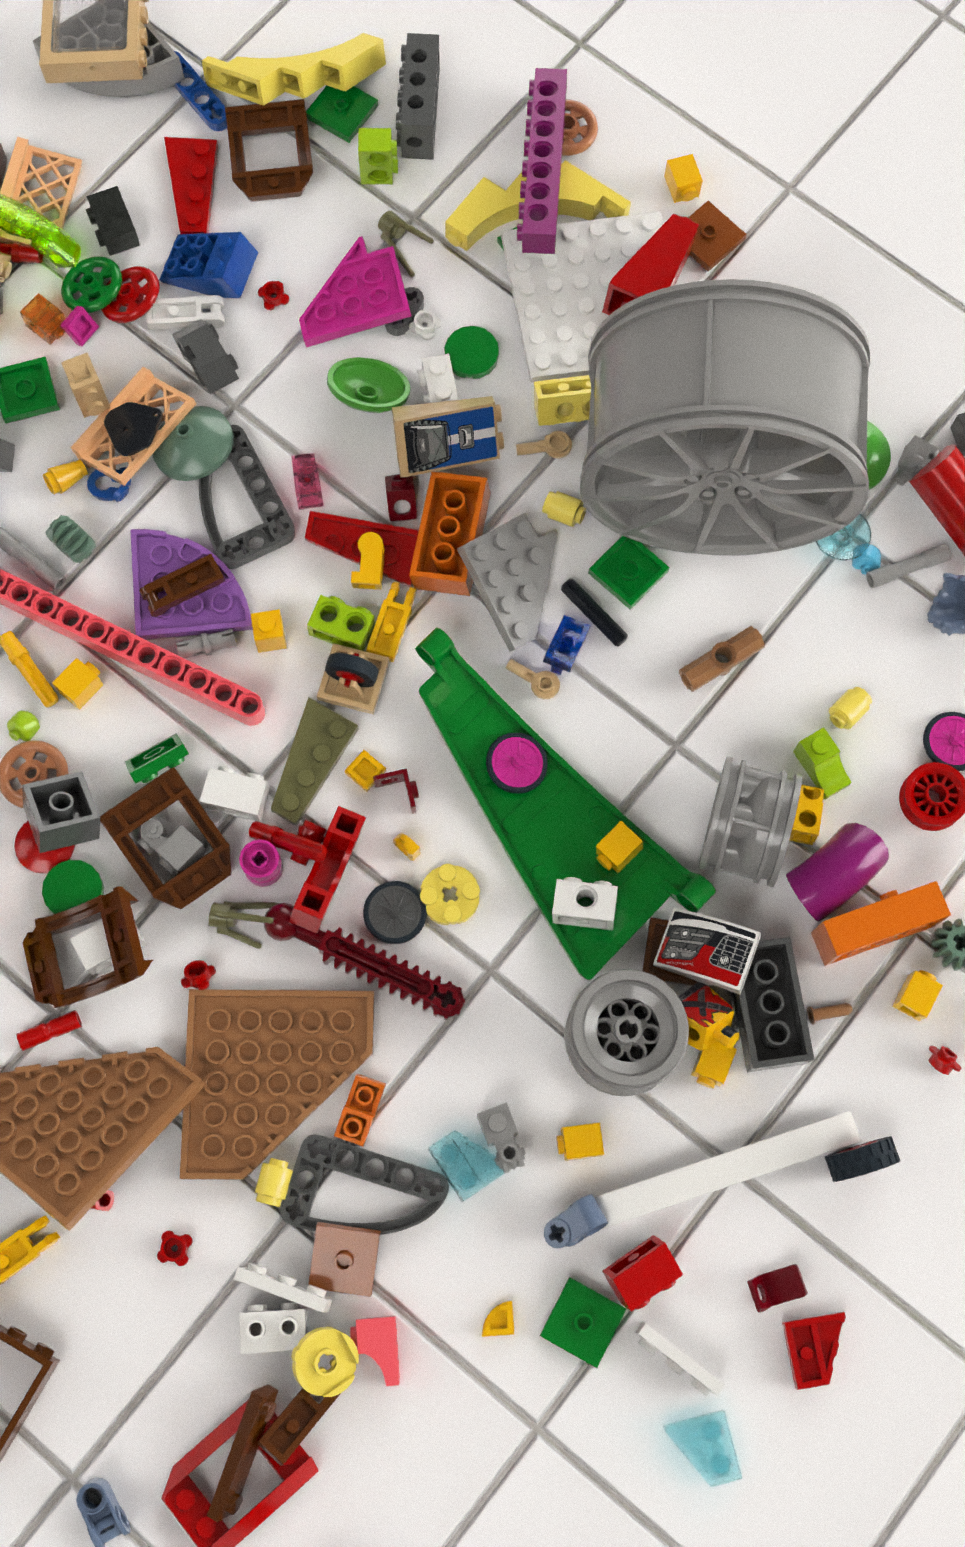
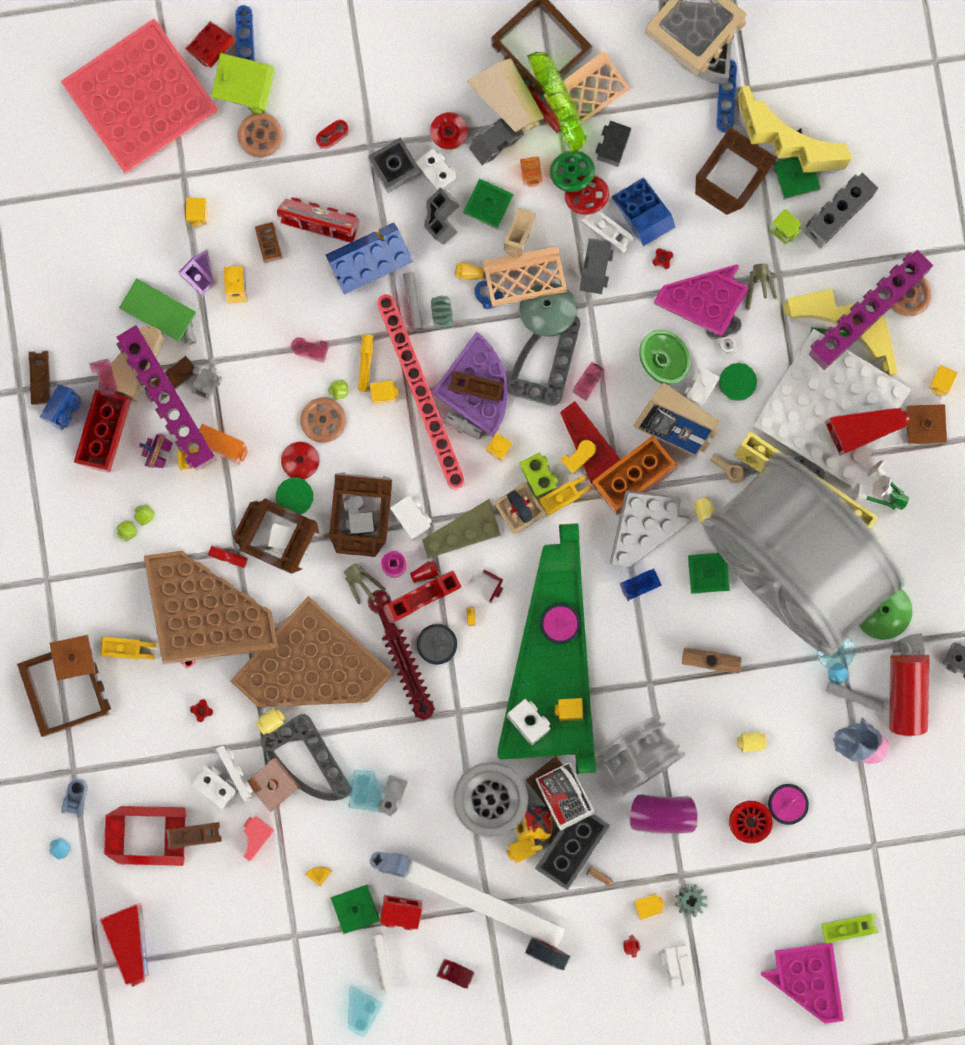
camera: 45 degrees right, 10 degrees up
(61, 811) = (320, 455): dark grey brick -> none
(79, 325) = (545, 190): dark pink tile -> none
(140, 424) = (527, 280): black piece -> none
(166, 753) = (387, 467): green plate -> none
(192, 179) = (679, 150): red wing -> none
(197, 975) = (321, 589): red plate -> none
(257, 1413) = (157, 827): reddish brown plate -> none
(288, 841) = (411, 556): red axle -> none
(307, 1356) = (220, 812): light yellow plate -> none
(360, 1110) = (339, 723): orange slope -> none
(364, 769) = (484, 560): yellow tile -> none
(400, 489) = (627, 429): dark red bracket -> none
(449, 877) = (476, 649): light yellow plate -> none
(543, 684) = (611, 594): tan plate -> none
(580, 1142) = (426, 829): yellow brick -> none
(594, 612) = (671, 579): black axle -> none
(808, 815) = (679, 774): yellow leg -> none
(812, 1348) = (448, 1014): red wing -> none
(822, 762) = (711, 757): lime arch -> none
(880, 922) = (661, 857): orange brick -> none

